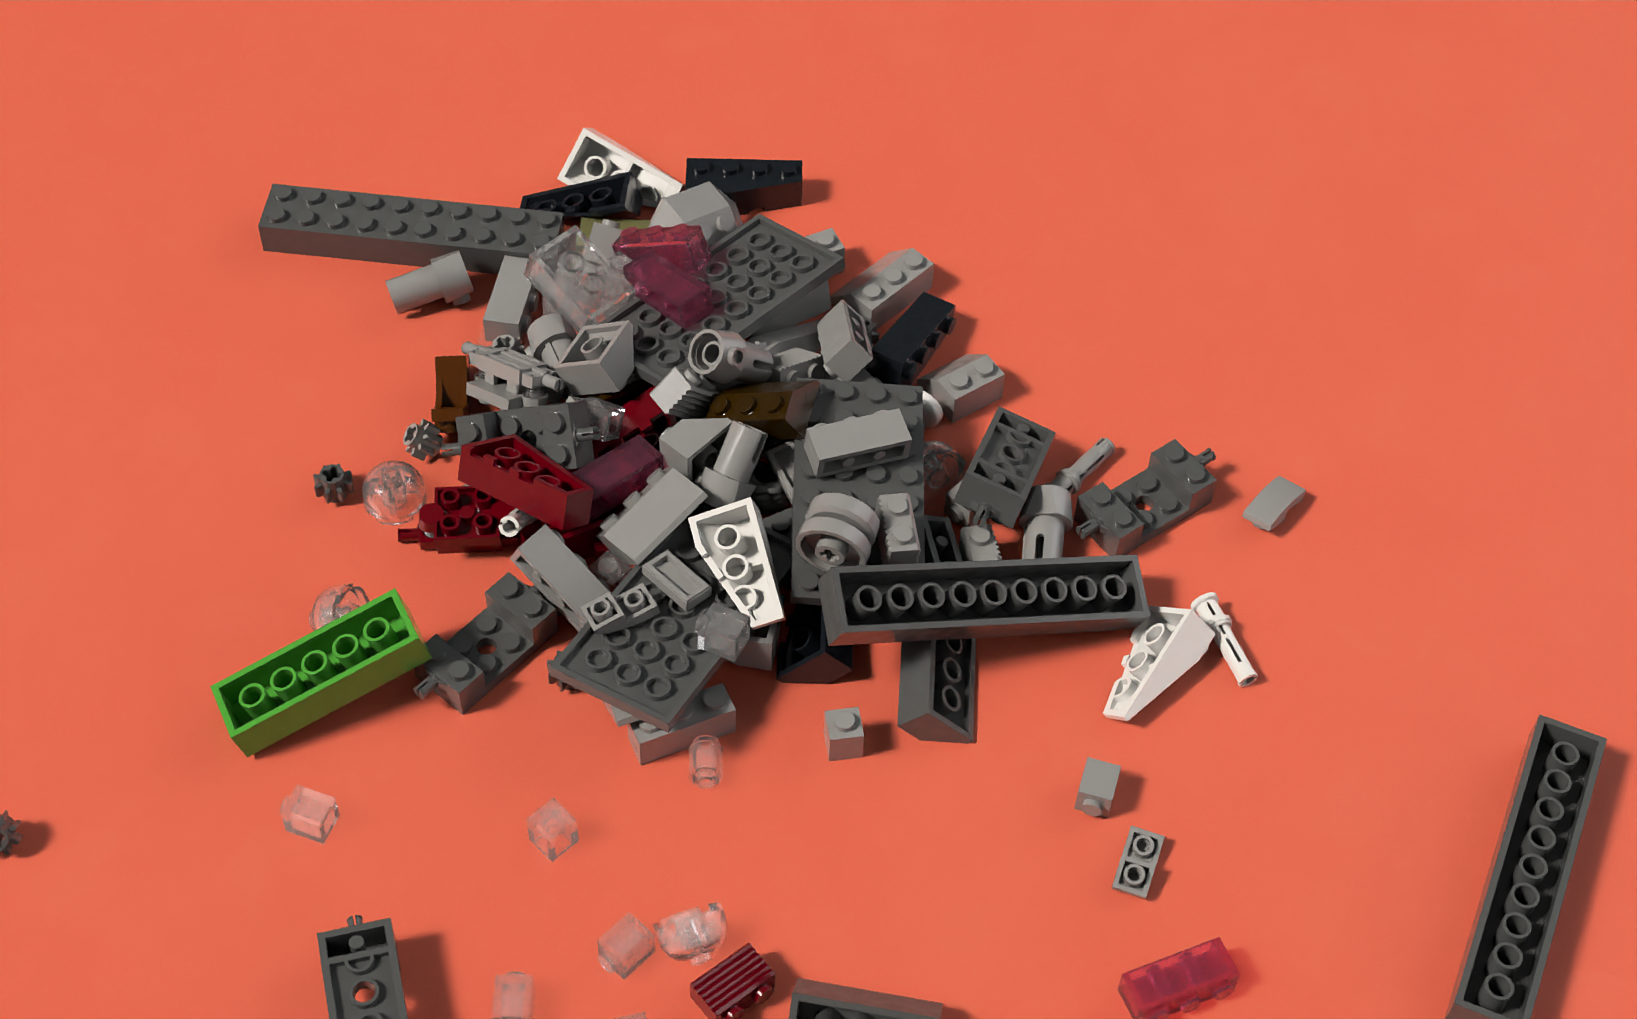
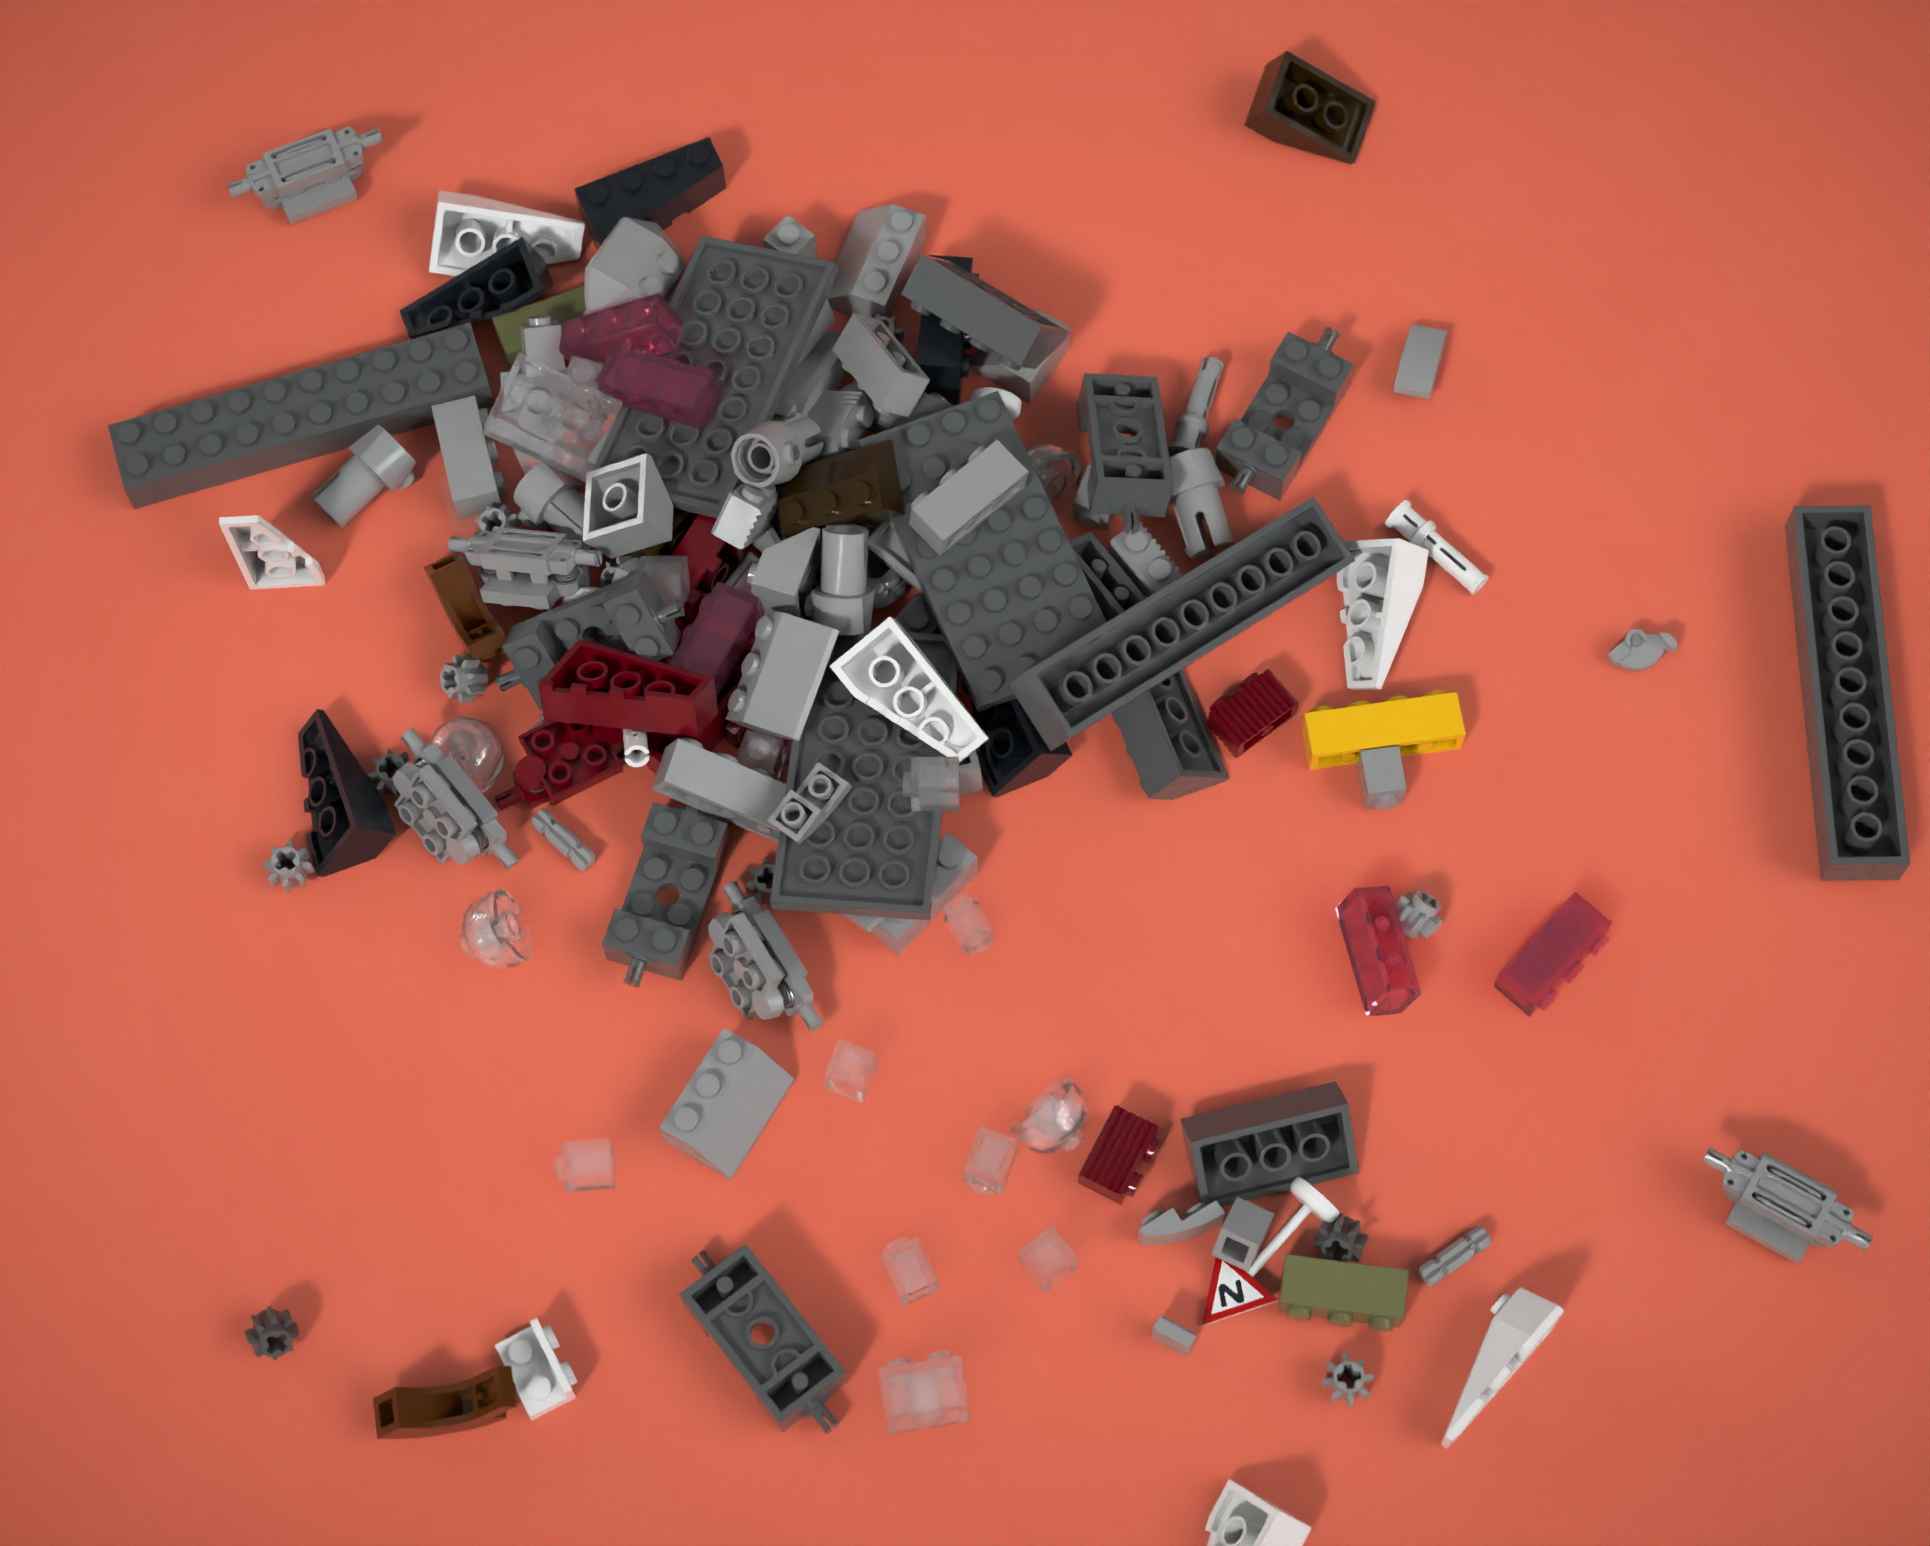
camera: 20 degrees left, 15 degrees up
(89, 946) = (445, 1408): none -> reddish brown arch
(180, 951) = (536, 1370): none -> white bracket
(219, 515) = (283, 857): none -> light grey gear
(285, 490) = (344, 805): none -> black wedge
(320, 672) = (519, 1008): bright green brick -> none
(327, 298) = (269, 555): none -> white wedge
(356, 517) = (447, 807): none -> light grey piece
(431, 578) = (563, 839): none -> light grey axle
(441, 814) = (726, 1104): none -> light grey slope
(508, 87) = (309, 173): none -> light grey piece
(525, 720) = (759, 963): none -> light grey piece
(676, 580) = (848, 740): light grey tile -> none
(837, 532) = (1005, 621): light grey wheel -> none
(843, 734) = (1096, 831): light grey brick -> none
(897, 530) = (1060, 588): light grey brick -> none
(939, 334) = (982, 312): none -> dark grey slope
(1014, 698) = (1251, 712): none -> dark red brick
(1028, 916) = (1378, 950): none -> clear pink brick
(1076, 902) = (1418, 914): none -> light grey gear
(1138, 862) = (1456, 841): light grey slope -> none
(1143, 758) = (1413, 724): none -> yellow brick
(1267, 305) = (1309, 110): none -> dark brown slope
(1363, 780) = (1641, 650): none -> light grey piece

